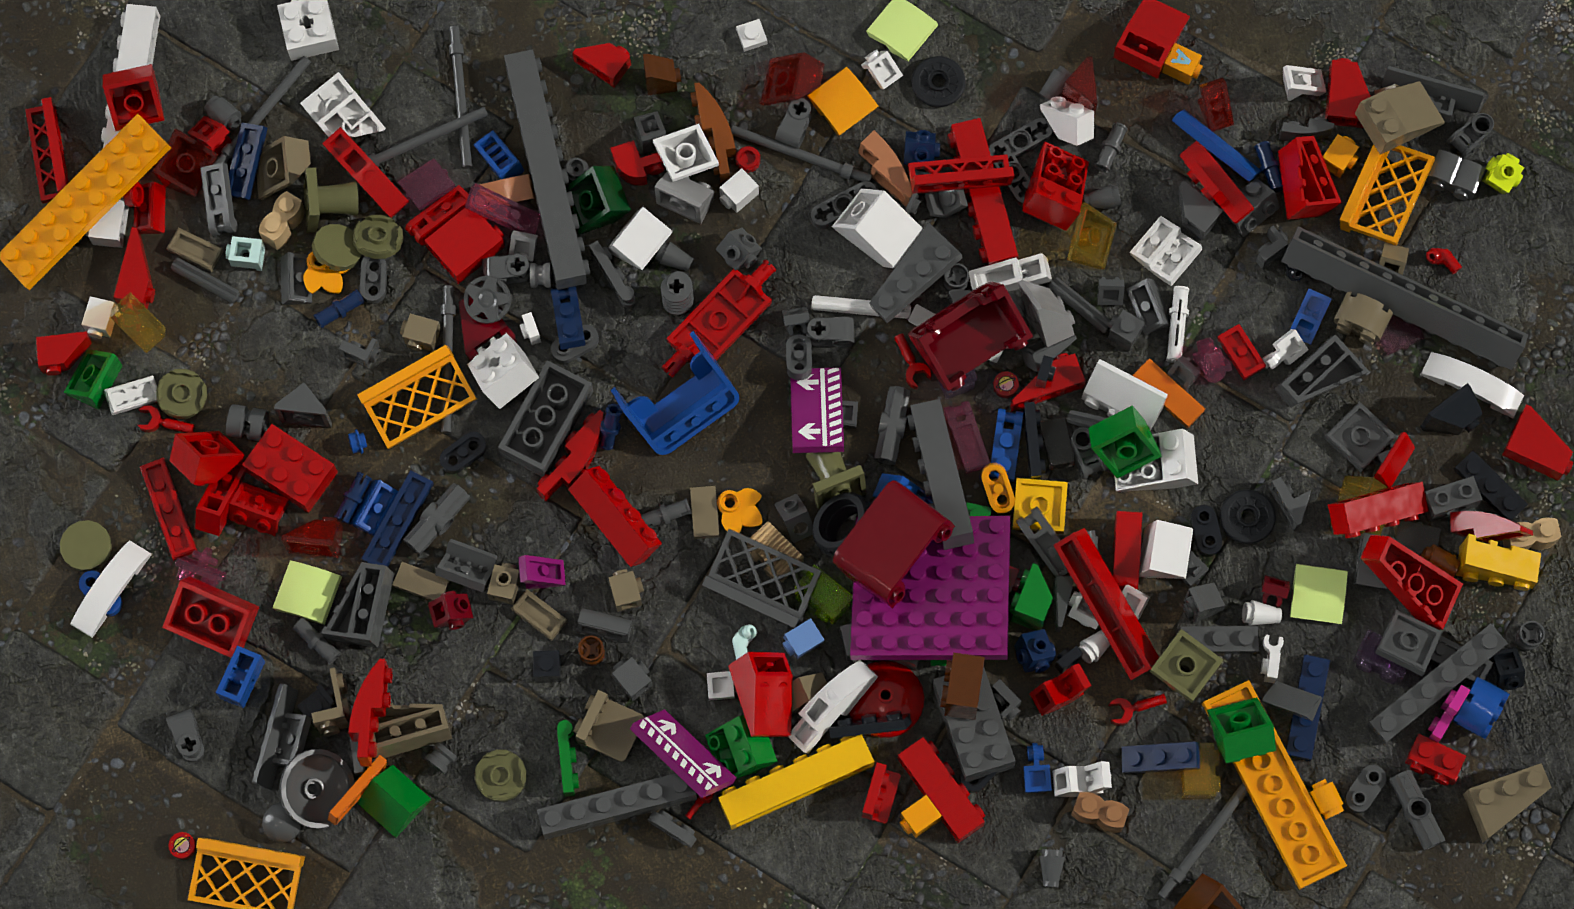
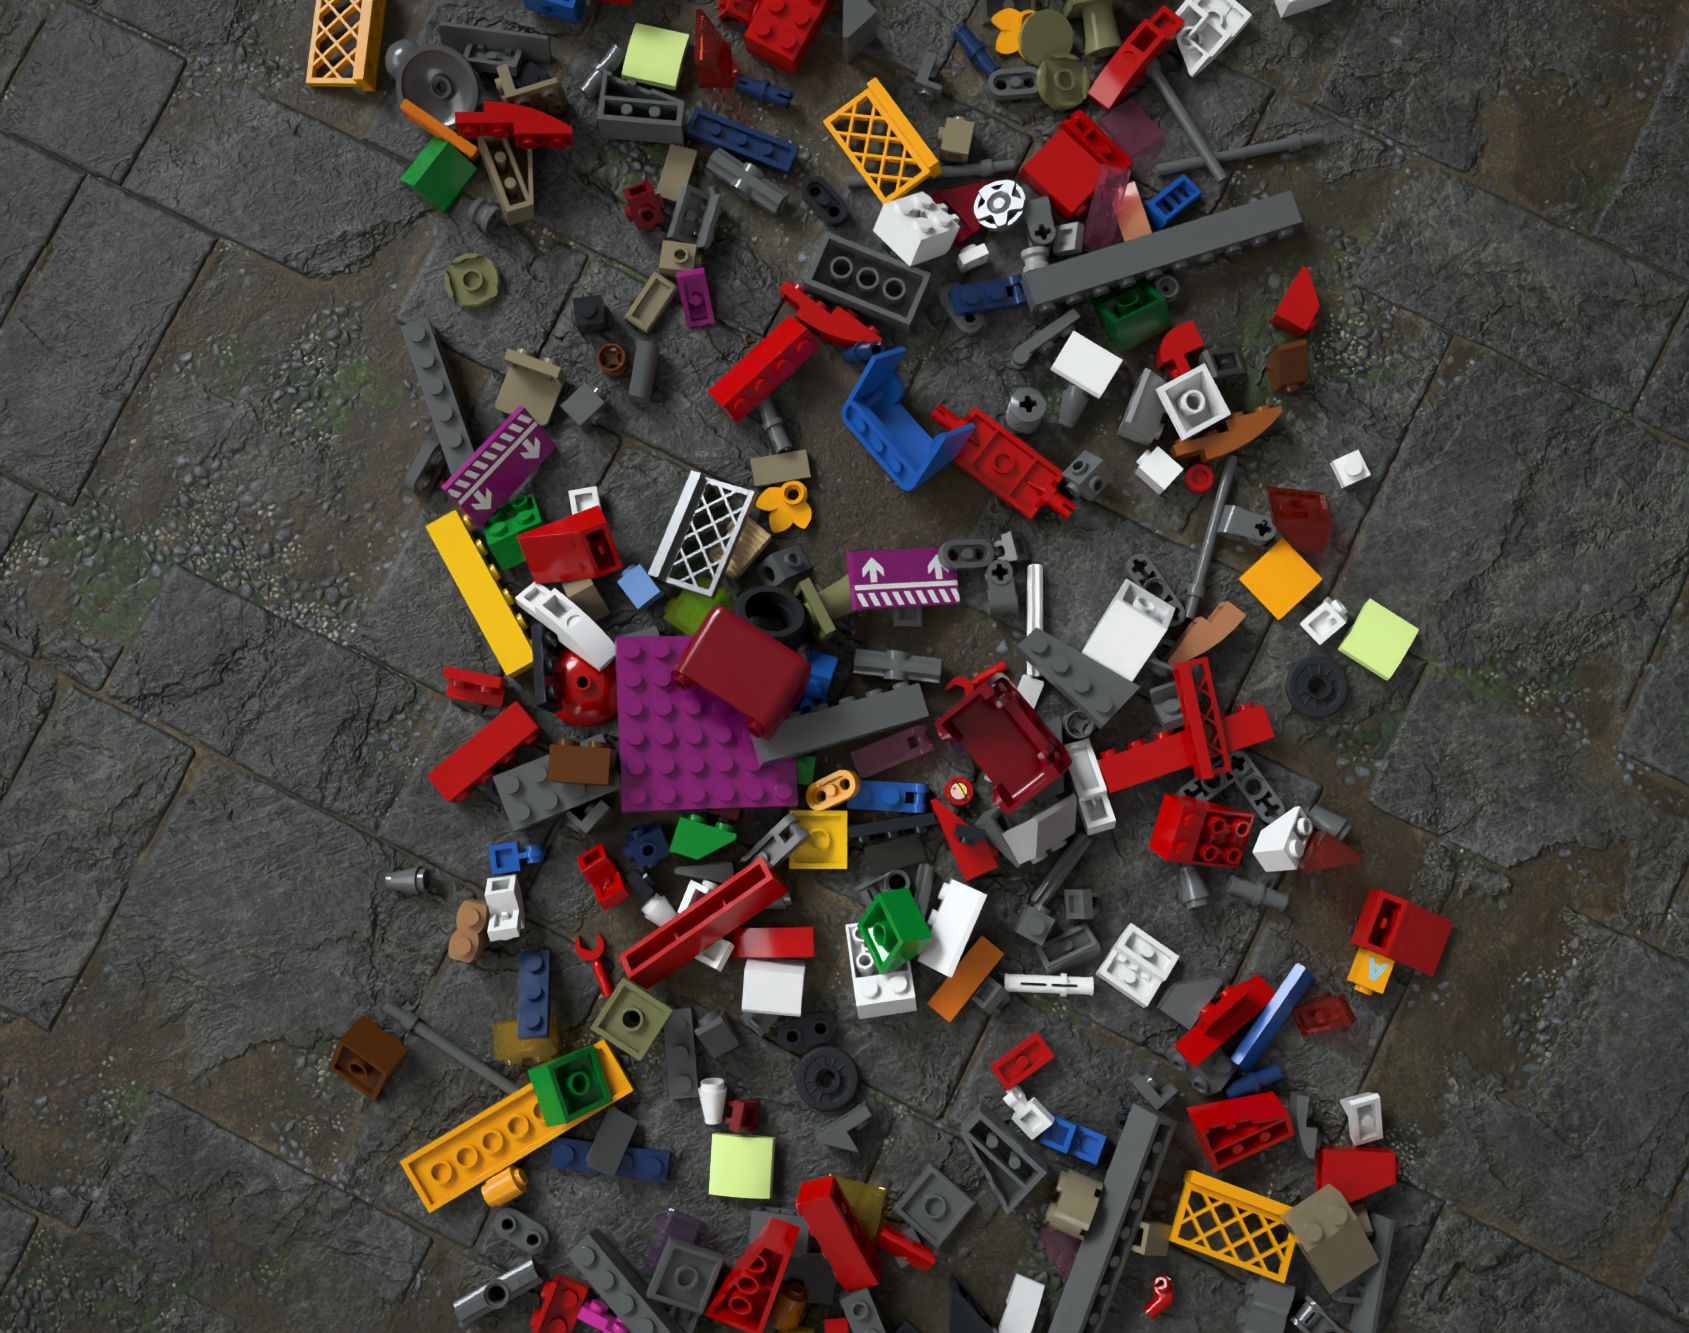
camera: 90 degrees right, 10 degrees up
(357, 442) = (827, 88): blue plate -> none
(374, 507) = (757, 115): blue slope -> none
(567, 756) = (491, 346): green plate -> none
(626, 589) = (683, 390): dark tan brick -> none
(742, 639) = (639, 522): light aqua arm -> none
(919, 817) = (452, 730): light orange brick -> none
(920, 147) = (1230, 671): dark blue brick -> none
(1091, 238) = (1142, 878): clear yellow slope -> none
(1211, 360) = (1006, 1026): clear pink hips -> none
(1271, 665) = (653, 1115): white plate -> none
(1341, 155) = (1276, 1167): light orange brick -> none

